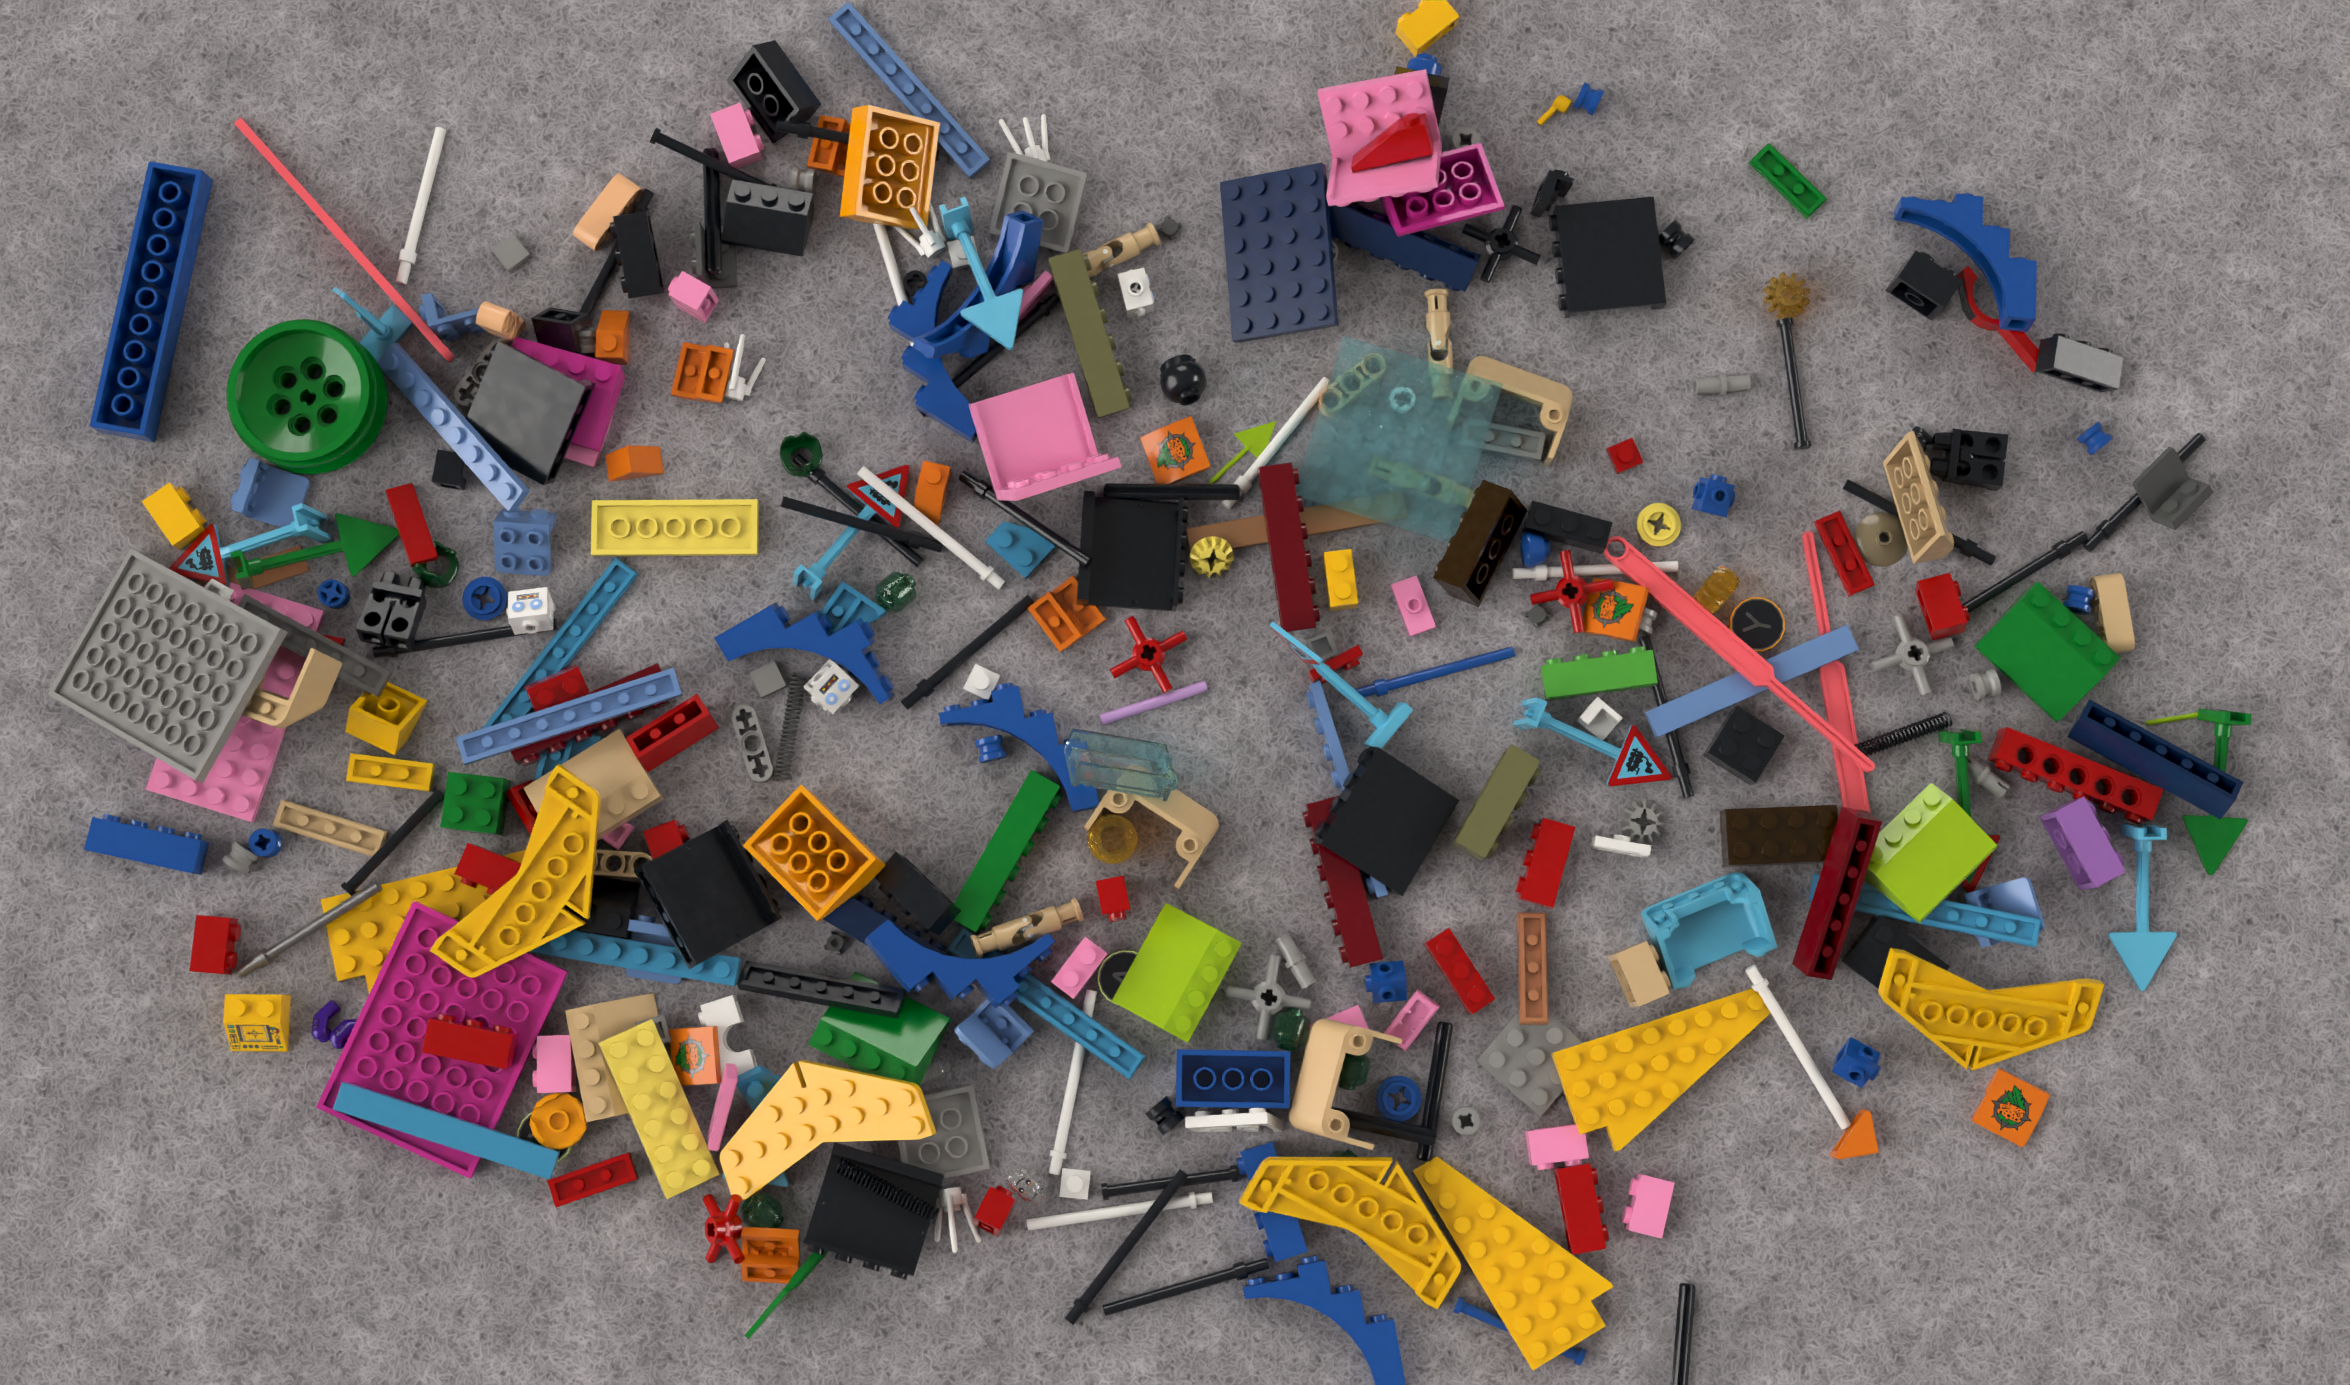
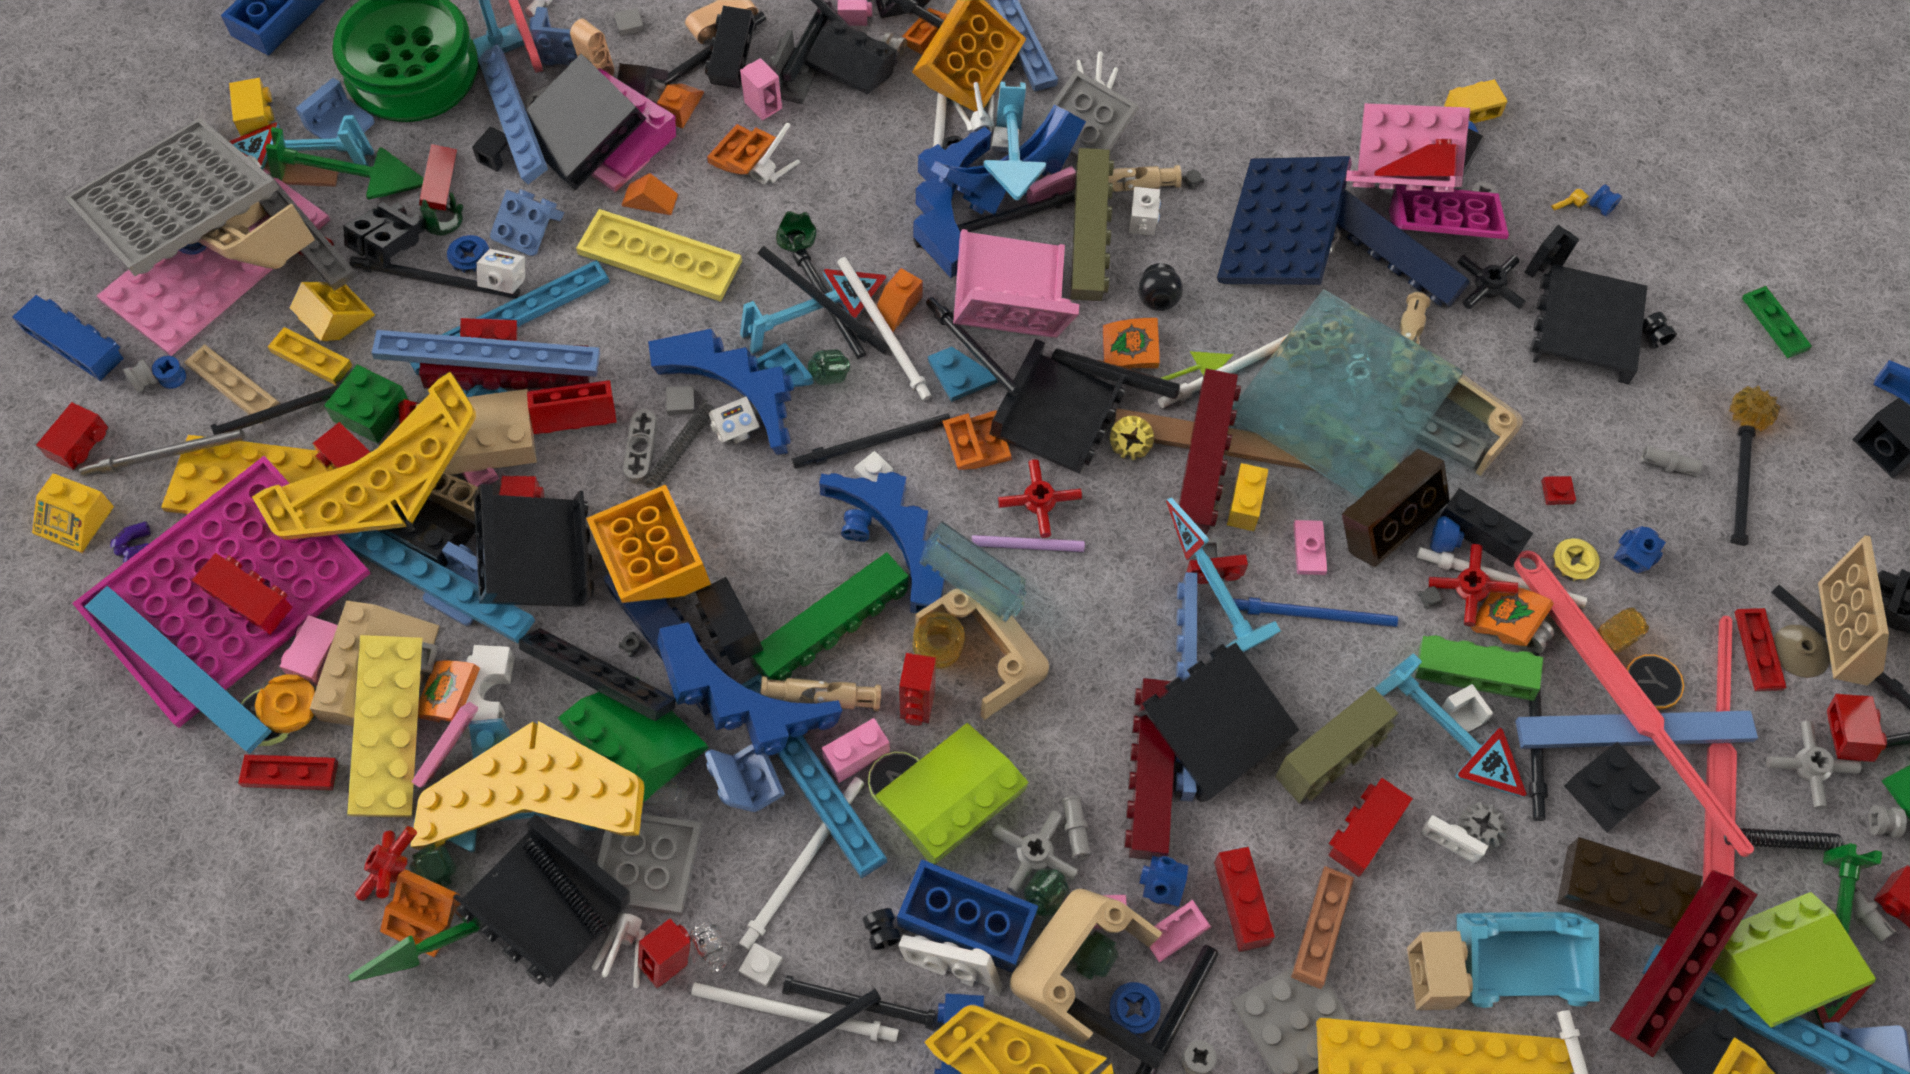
camera: 20 degrees right, 20 degrees down
(328, 591) = (345, 199): blue wheel -> none

